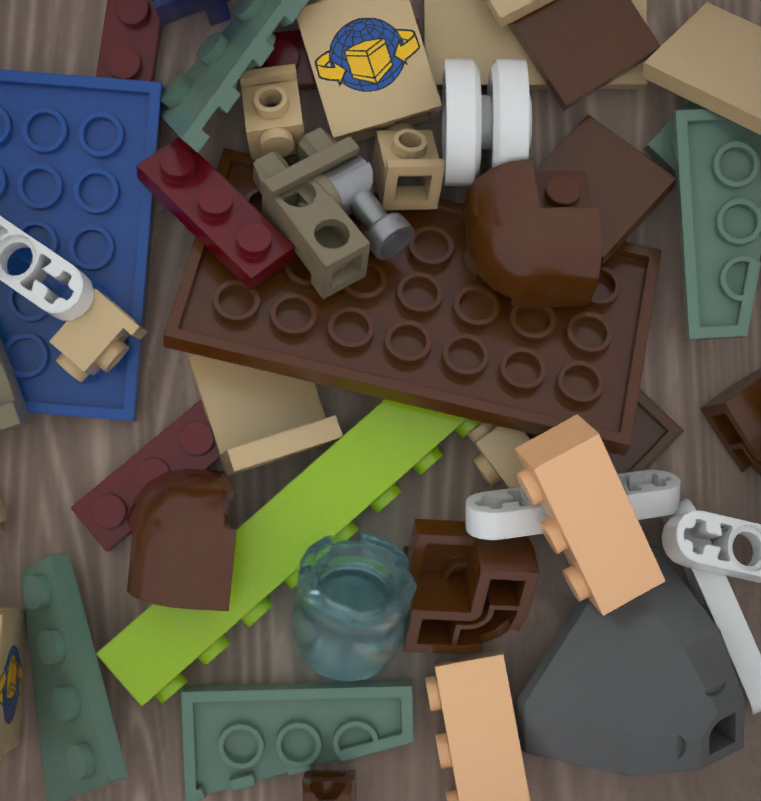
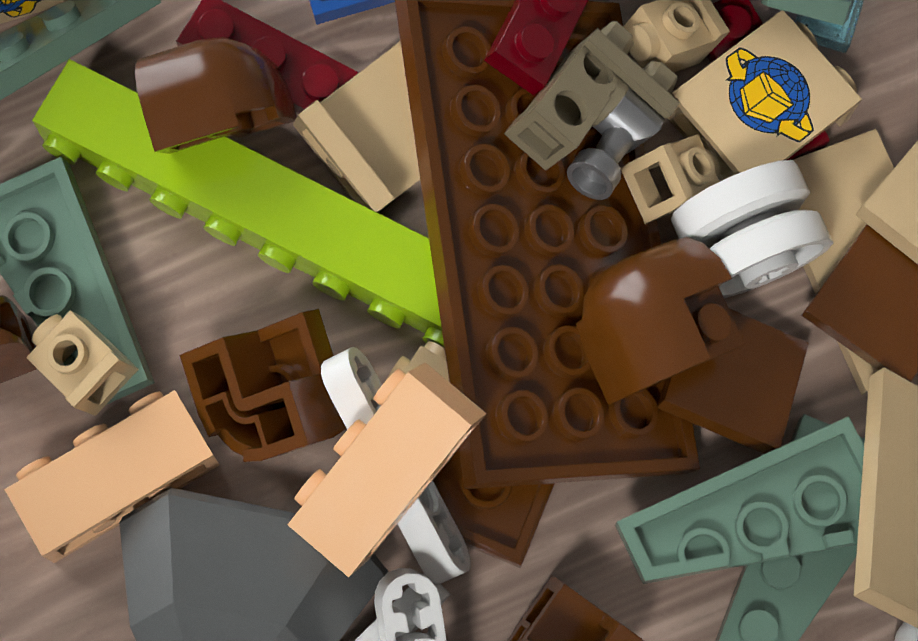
camera: 65 degrees right, 10 degrees down
(351, 606) = (204, 280): clear light blue tile -> none
(382, 720) = (95, 373): none -> tan brick

